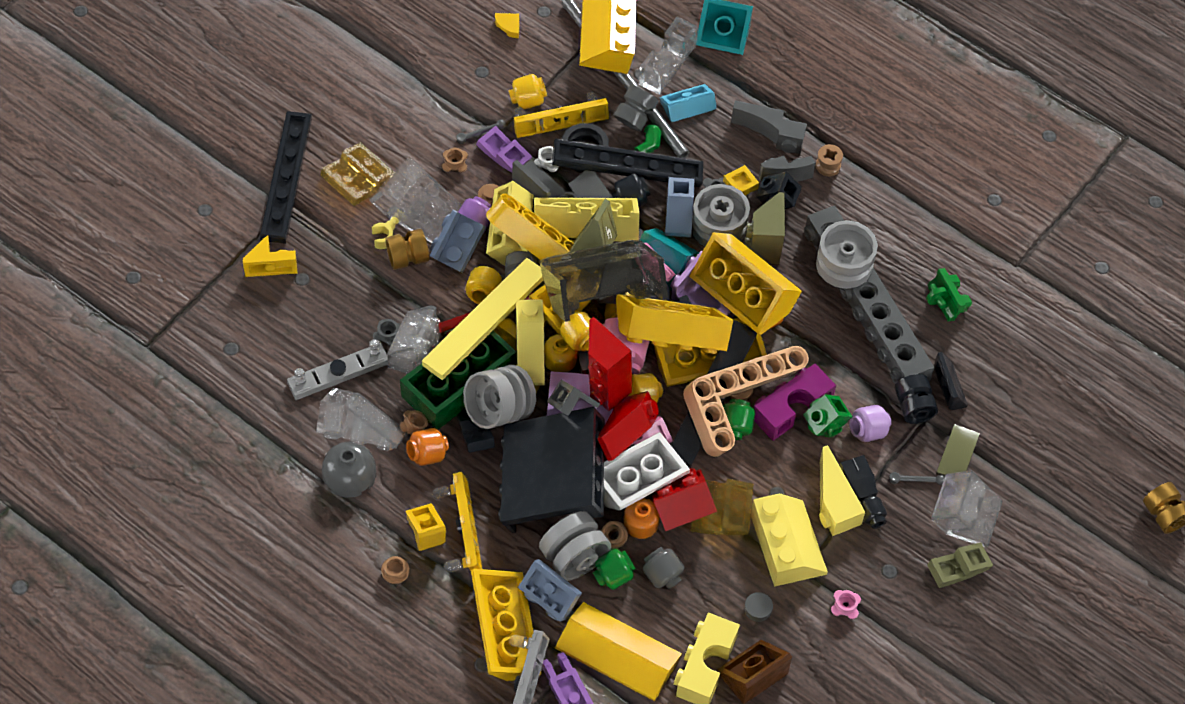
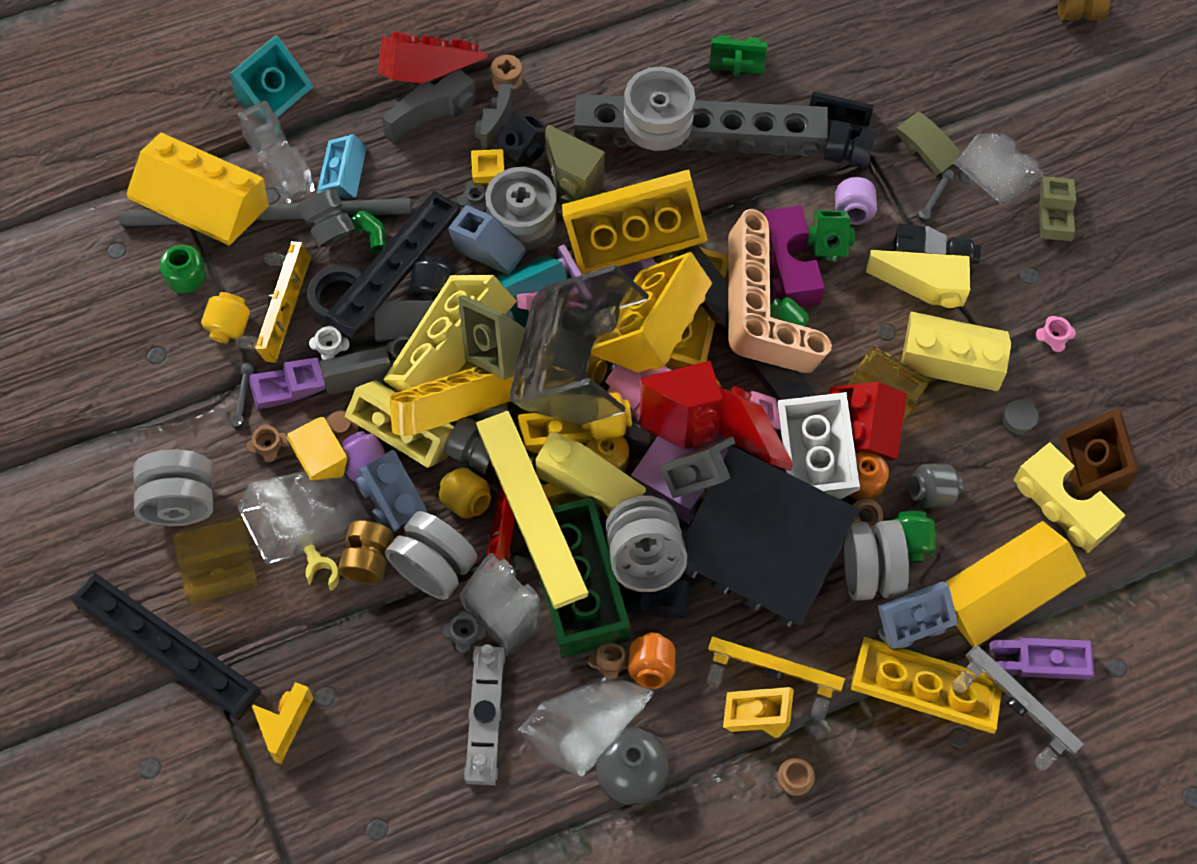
camera: 60 degrees left, 5 degrees up
(385, 121) = (173, 488): none -> light grey wheel
(418, 282) = (431, 555): none -> light grey wheel
(461, 187) = (318, 450): none -> yellow slope
(508, 23) = (111, 293): yellow tile -> none
(546, 49) = (182, 269): none -> green head
(796, 97) = (423, 60): none -> red slope

